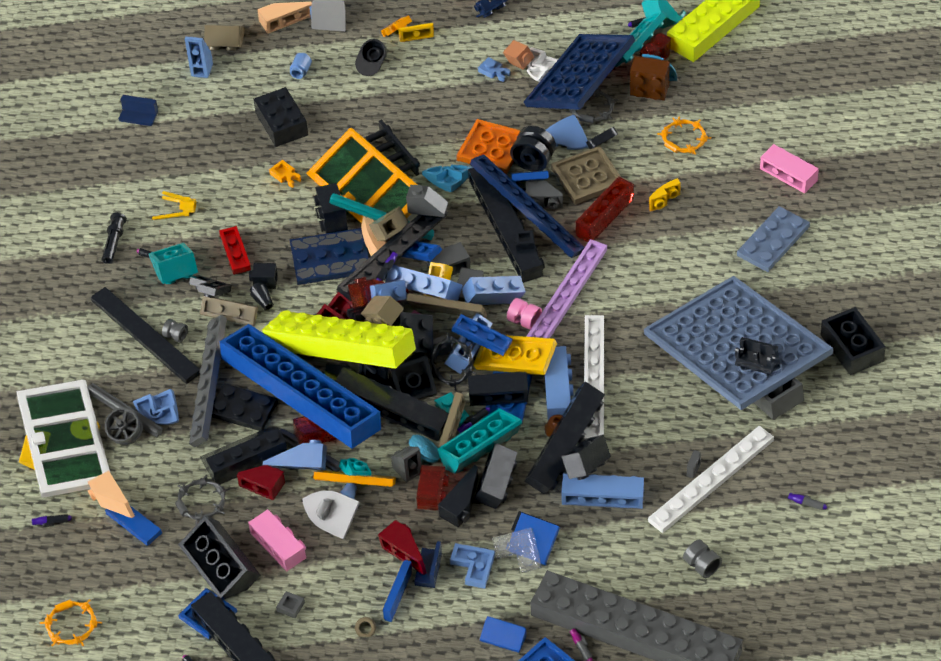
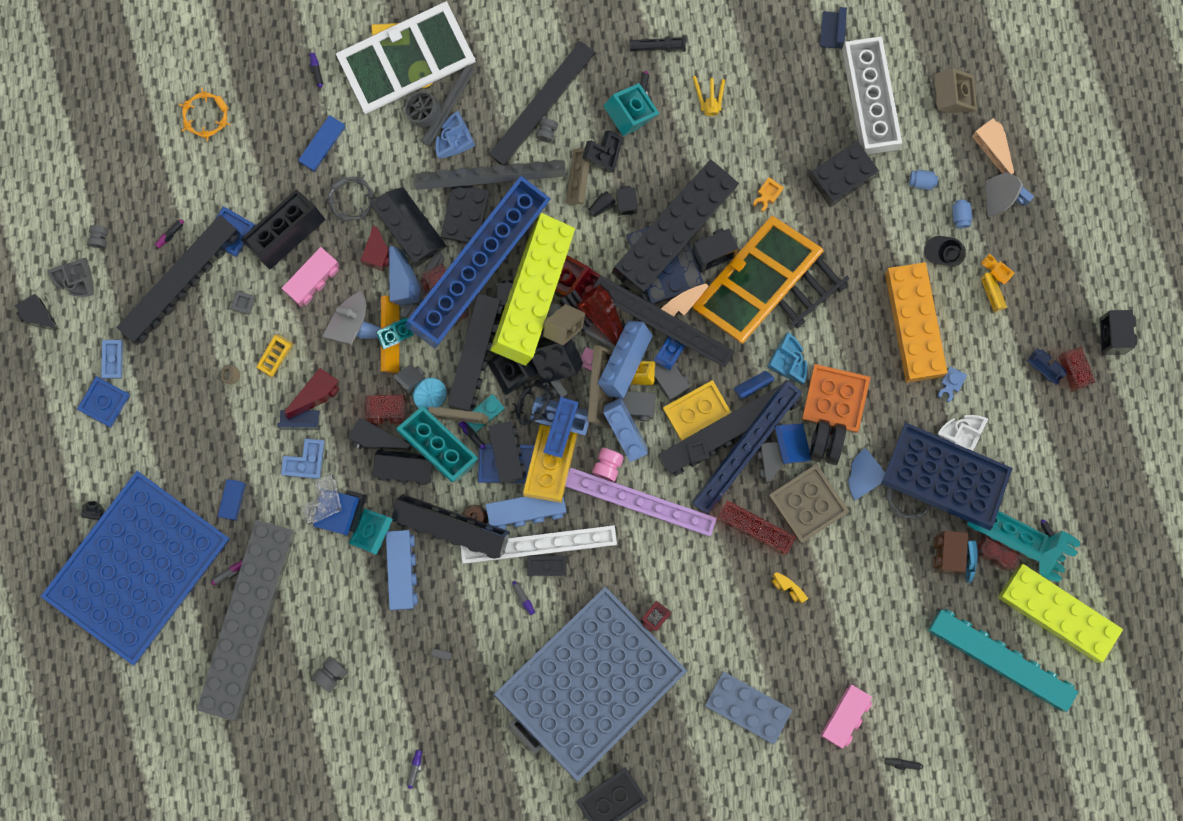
camera: 75 degrees right, 30 degrees up
(109, 495) = (342, 113): light nougat slope -> none
(199, 57) = (910, 73): medium blue slope -> none
(210, 88) = (872, 95): none -> white brick
(235, 250) = (658, 165): red plate -> none
(302, 235) = (675, 228): none -> black brick
(339, 43) = (962, 214): none -> medium blue brick
(343, 583) = (288, 345): none -> yellow slope
(364, 210) = (705, 292): teal axle -> none
(387, 266) = (638, 320): black piece -> none
(389, 224) = (689, 312): dark tan slope -> none
(395, 289) = (600, 326): medium blue plate -> none
(397, 590) = (264, 395): blue tile -> none
(425, 201) = (723, 343): dark grey slope -> none
(432, 83) = (916, 322): none -> light orange brick
(467, 202) = (753, 385): none -> blue slope
(483, 245) = (696, 410): none -> yellow plate
(518, 54) = (969, 407): nougat brick -> none
(559, 507) = (370, 531): none -> teal plate
(586, 457) = (424, 549): black brick -> none
(601, 138) = (862, 512): black beam -> none
(616, 373) = (546, 565): none -> black plate
(646, 397) = (523, 599): none -> piece
(679, 294) = (655, 616): none -> dark red window
(691, 149) = (862, 588): light orange piece -> none
(710, 479) = (431, 673): white plate -> none
(749, 61) = (1002, 660): none -> teal brick
(757, 356) = (554, 705): black hinge -> none
(836, 138) = (903, 764): none -> black piece

